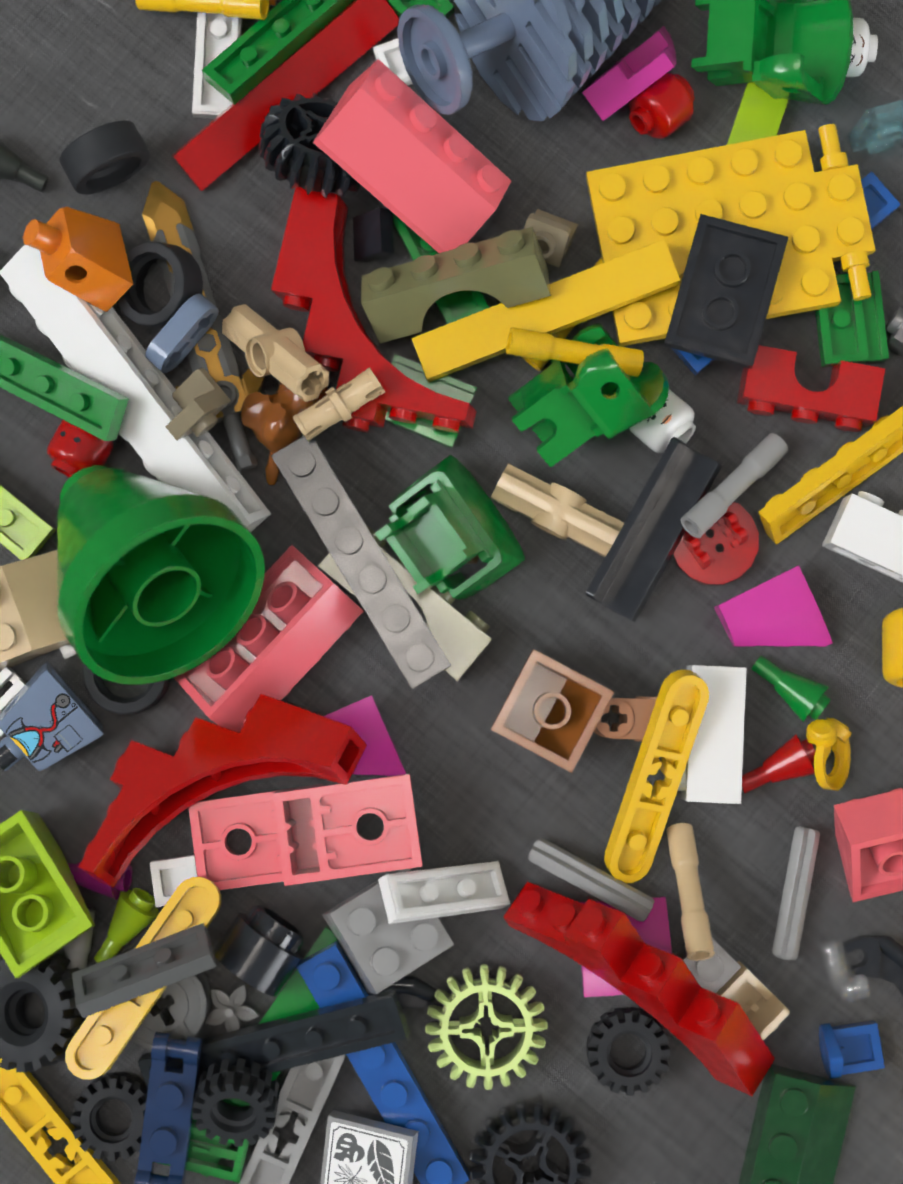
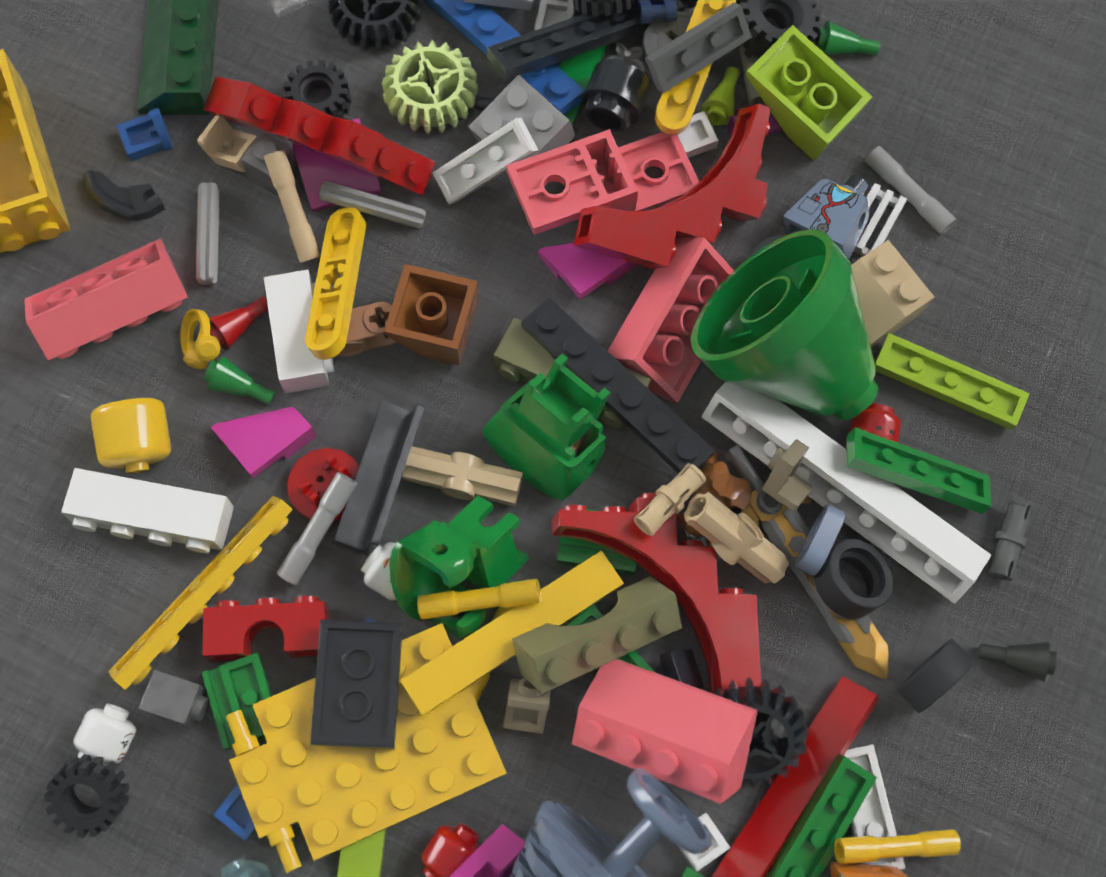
camera: 165 degrees right, 15 degrees down
(82, 255) = (925, 579): orange torso -> none
(839, 975) = (164, 185): clear arm -> none

